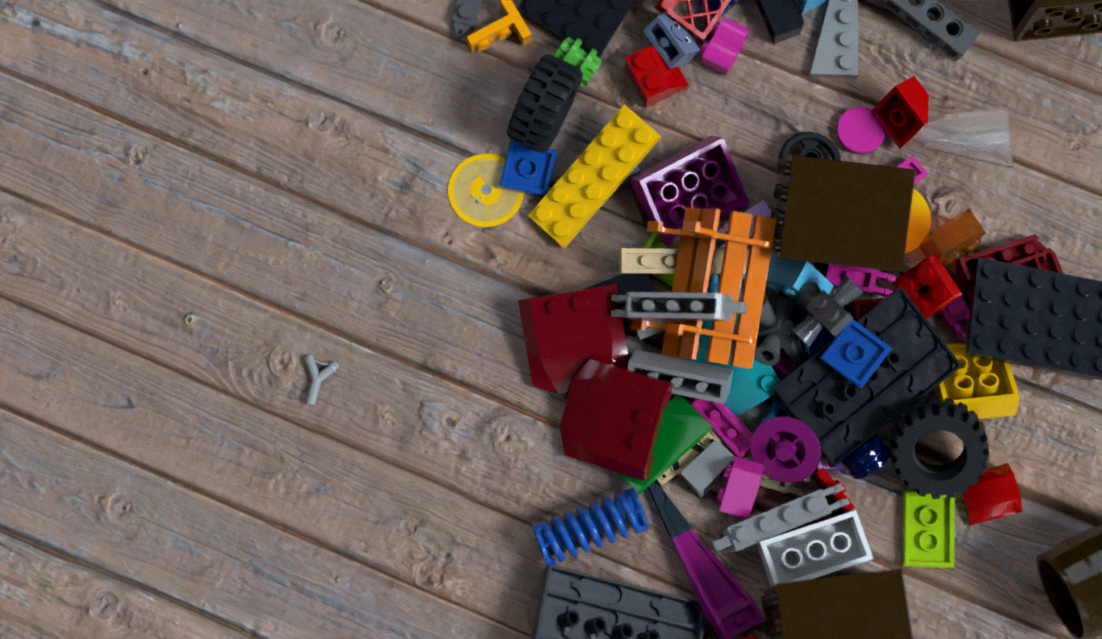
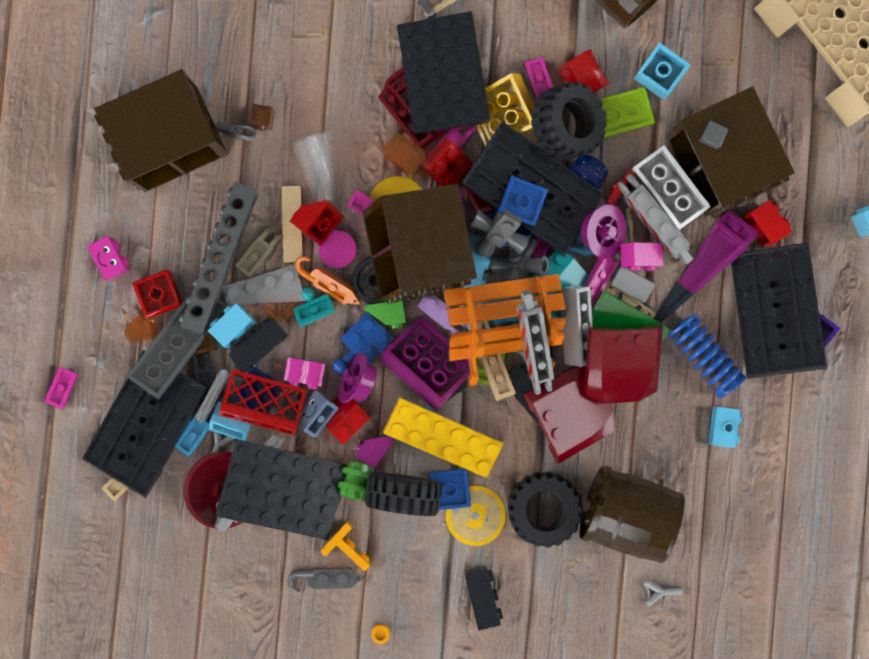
camera: 105 degrees left, 10 degrees up
(385, 36) = (380, 633): none -> light orange tile
(386, 164) = (483, 597): none -> black brick
(427, 361) = (632, 515): none -> dark brown piece
(460, 237) = (545, 535): none -> black tyre
(492, 522) = (724, 427): none -> medium azure brick
(605, 93) = (373, 449): none -> magenta slope
(696, 99) = (357, 380): none -> magenta wheel
(740, 124) = (363, 337): none -> blue plate
(763, 164) = (389, 314): none -> bright green slope
(797, 81) = (314, 308): none -> teal plate
(800, 42) = (284, 315): none -> clear orange bracket
(823, 105) = (328, 283): none -> orange plate
(870, 600) = (713, 135): none -> dark grey piece
(883, 81) = (291, 235): none -> tan tile
(885, 37) = (257, 253): none -> dark tan hinge
(967, 592) = (662, 71): none -> medium azure brick
(1007, 437) = (538, 76): none -> dark pink plate
(1046, 53) = (231, 129): none -> dark grey piece
(1049, 91) = (262, 117): none -> reddish brown brick

